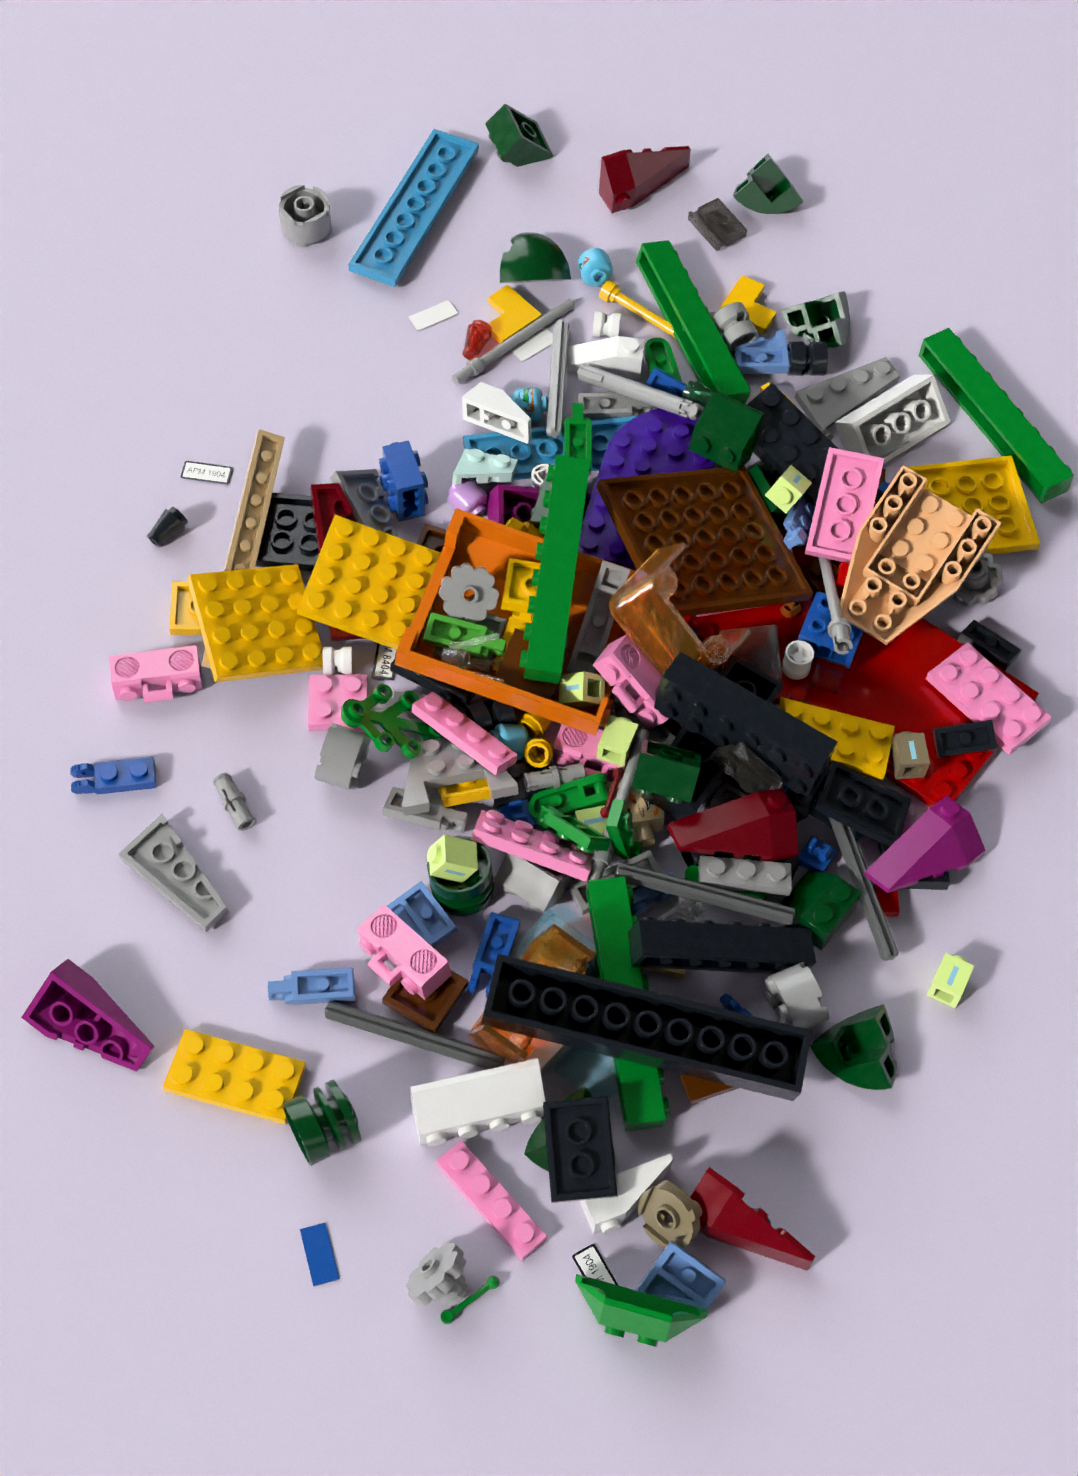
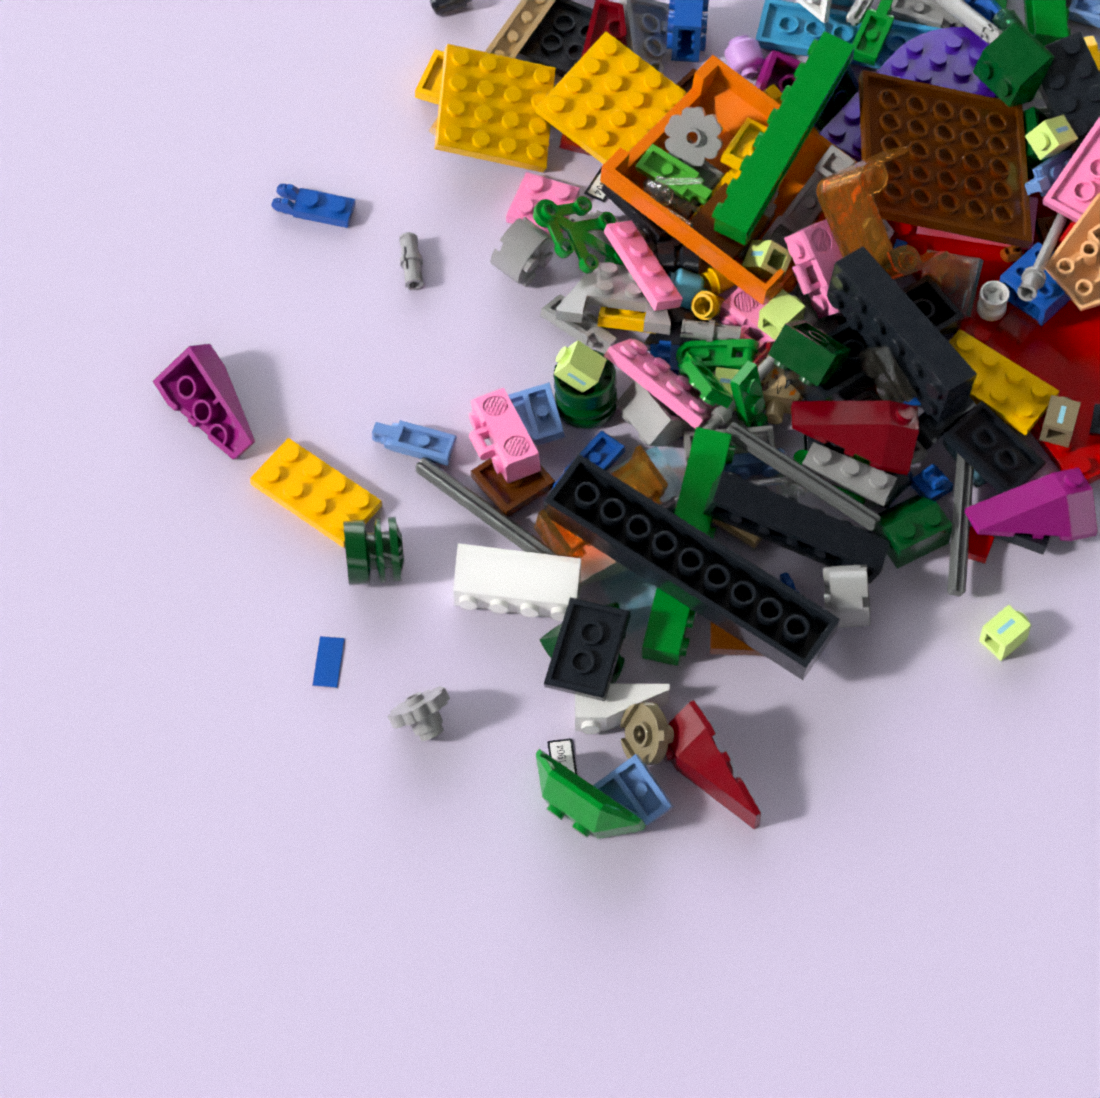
camera: 25 degrees right, 0 degrees up
(155, 674) = (387, 126): bright pink piece -> none
(169, 868) = (331, 302): light grey wing -> none
(337, 660) = (557, 167): white wheel -> none
(447, 1316) = (416, 749): green hinge -> none
(484, 467) = (770, 32): light aqua wing -> none
(491, 1200) = (496, 670): bright pink plate -> none
(860, 1050) = (889, 662): dark green brick -> none

